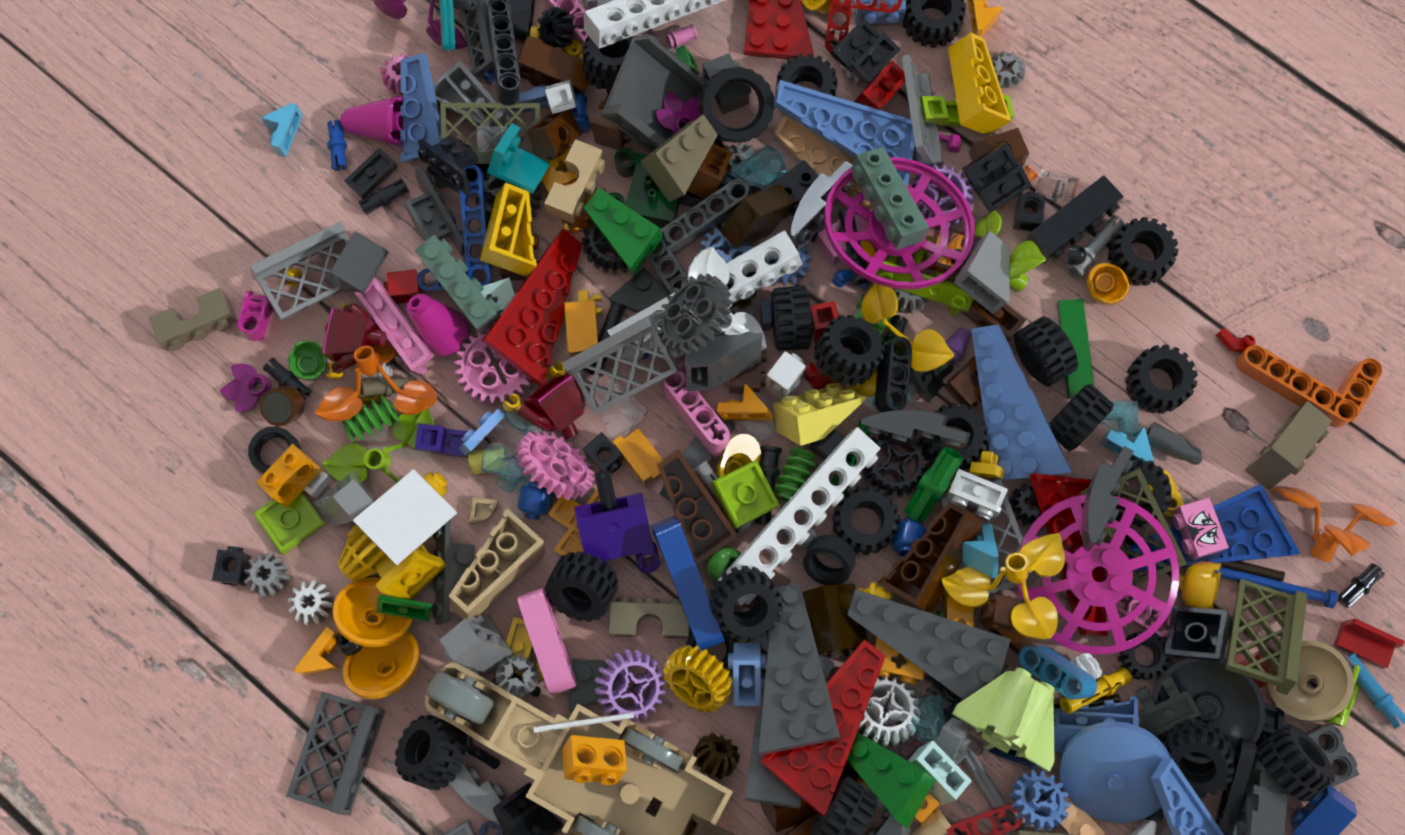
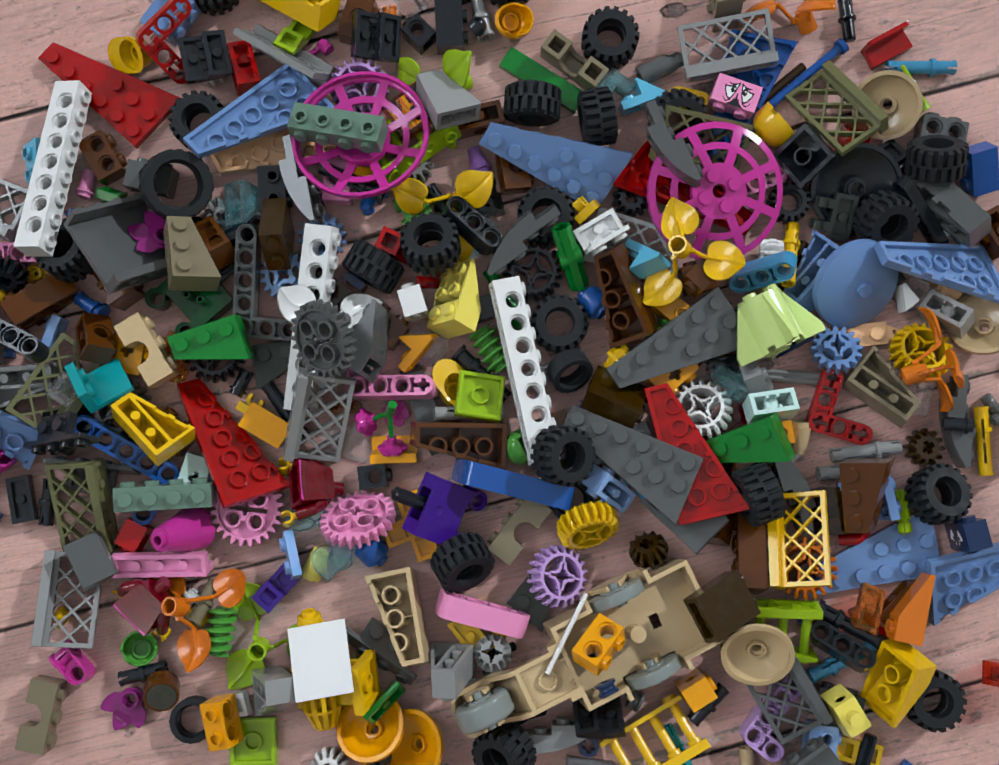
camera: 55 degrees left, 10 degrees up
(426, 225) = (98, 487): none -> olive fence
(482, 510) = (350, 593): tan tile -> none
(558, 798) = (606, 688): none -> dark blue bush
(561, 96) = (69, 312): white brick -> none
(604, 282) = (241, 382): none -> black pin
(652, 392) = (355, 406): none -> reddish brown piece
(673, 433) = (395, 414): none -> dark pink plant
(711, 32) = (101, 159): none -> reddish brown brick
(1111, 346) = (560, 54): none -> dark tan arch
(1229, 507) = (735, 63): none -> light grey fence

